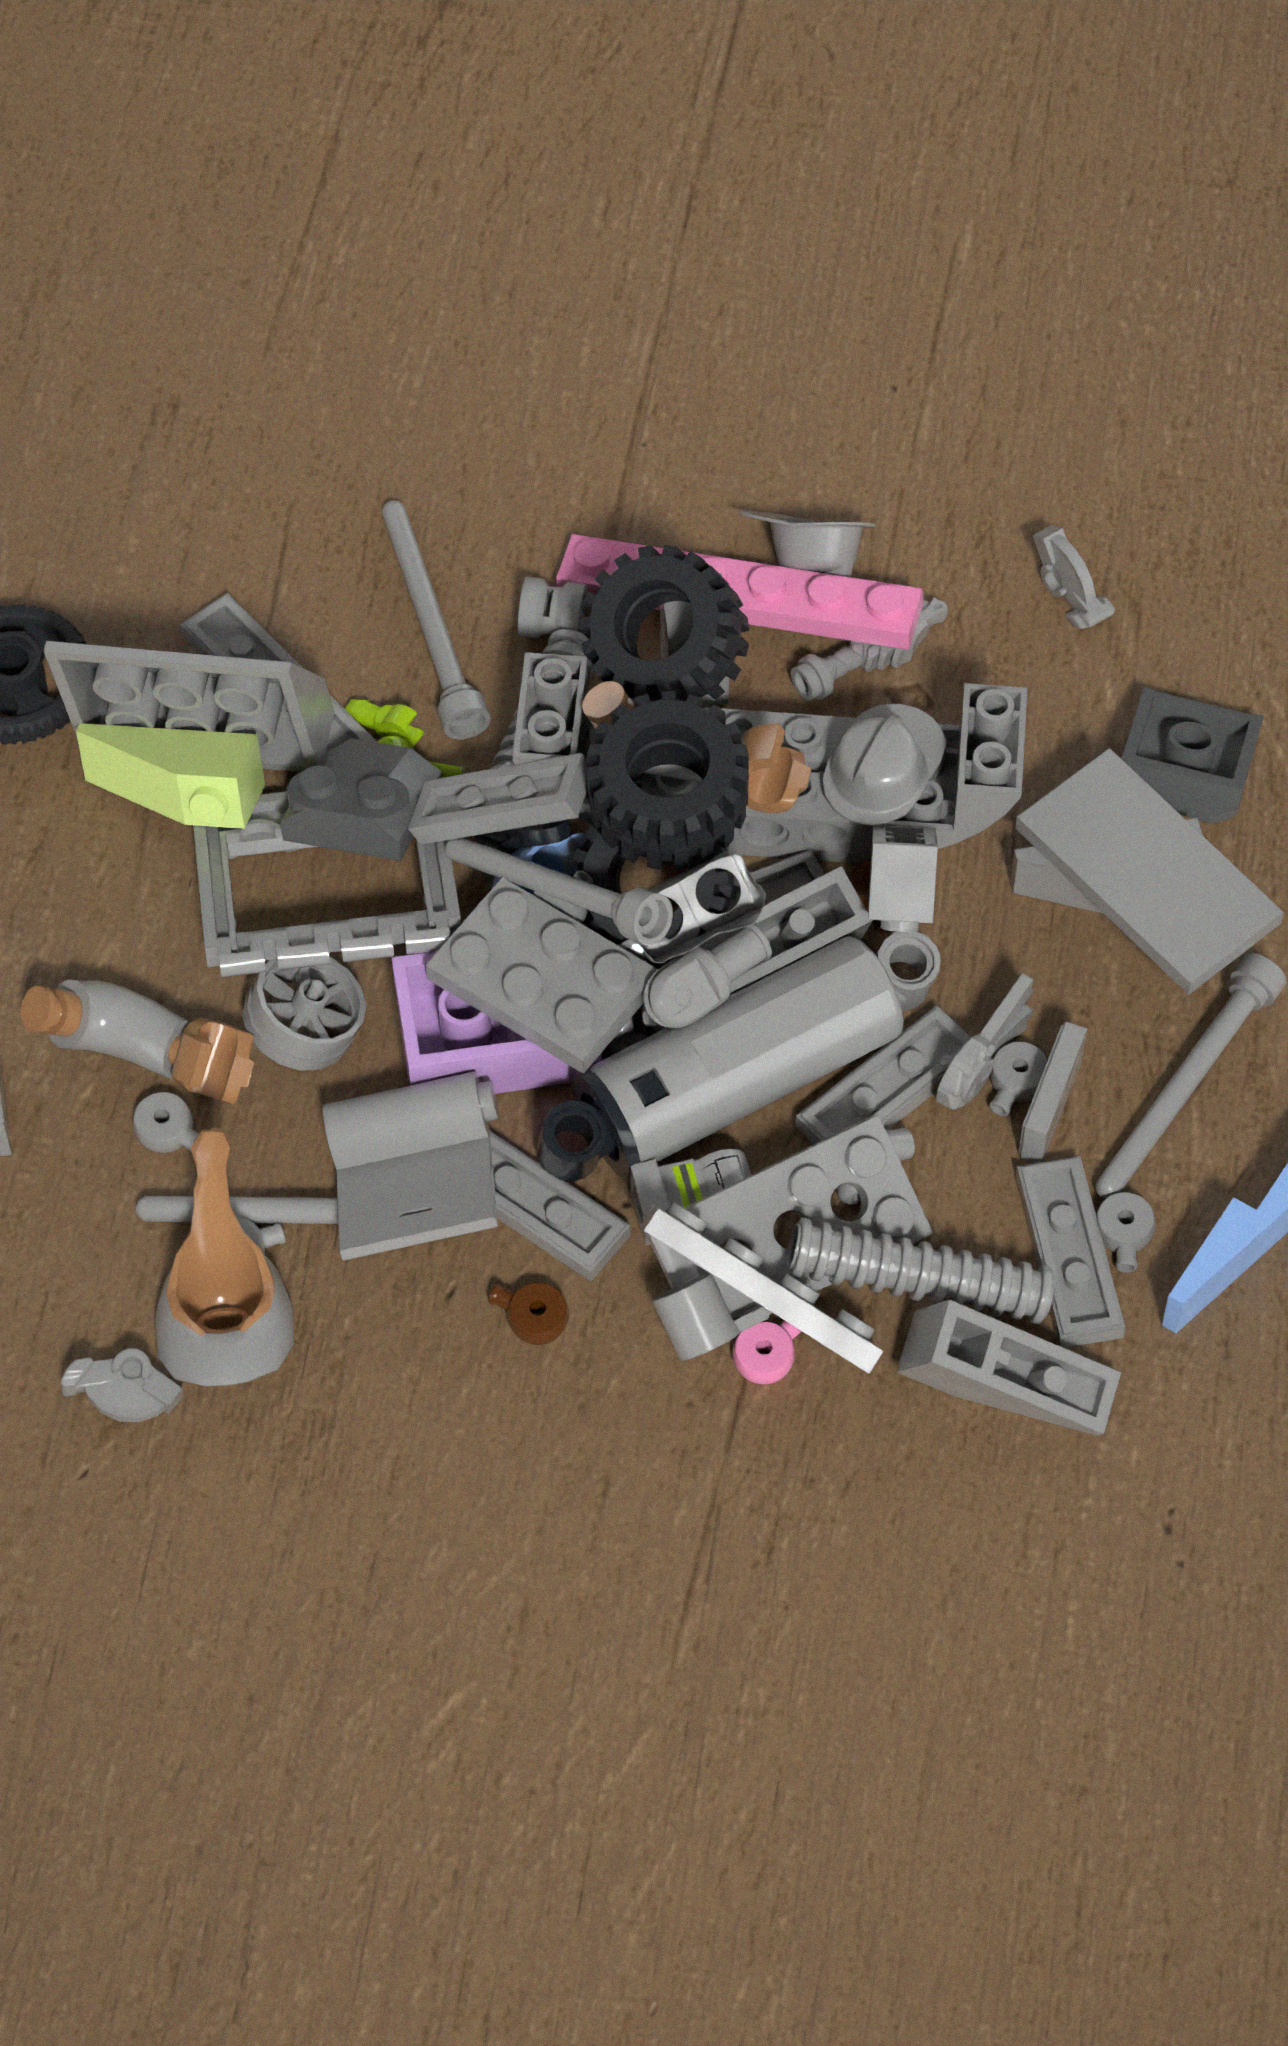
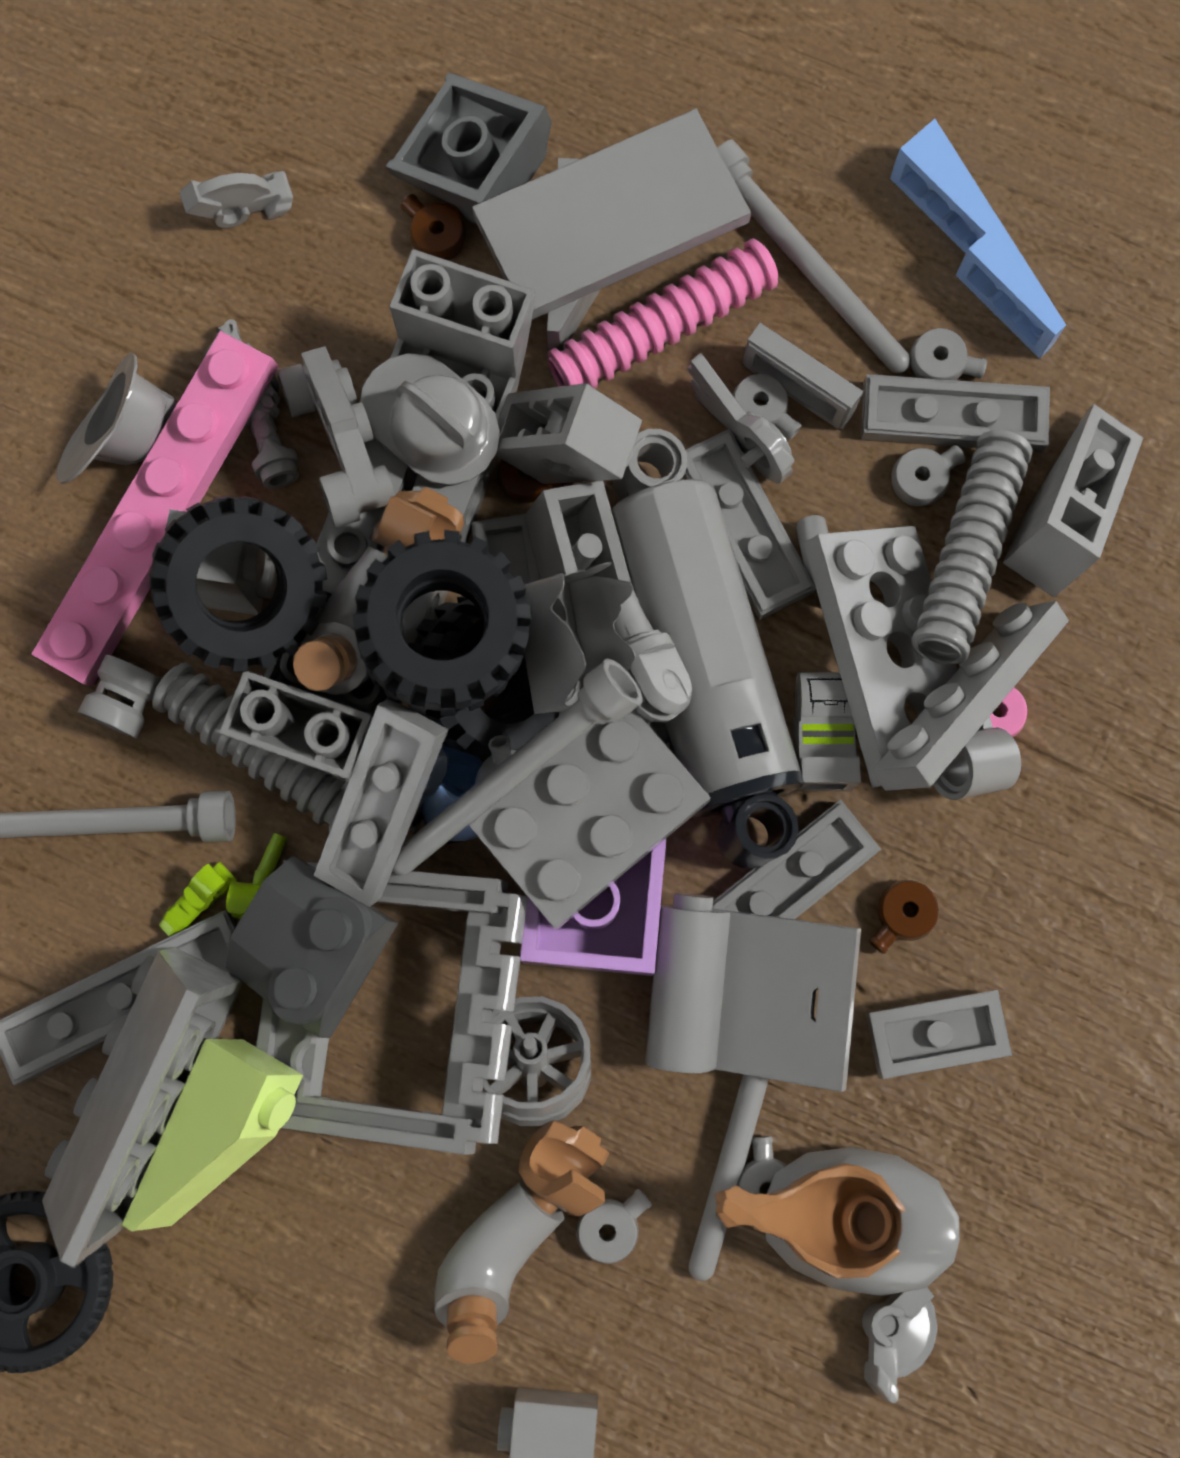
camera: 75 degrees left, 20 degrees up
(421, 1357) = (938, 1034): none -> light grey plate
(842, 692) = (331, 390): none -> light grey plate
(998, 1220) = (934, 469): none -> light grey piece
(1074, 961) = (665, 317): none -> bright pink piece
(1098, 739) = (434, 218): none -> reddish brown piece

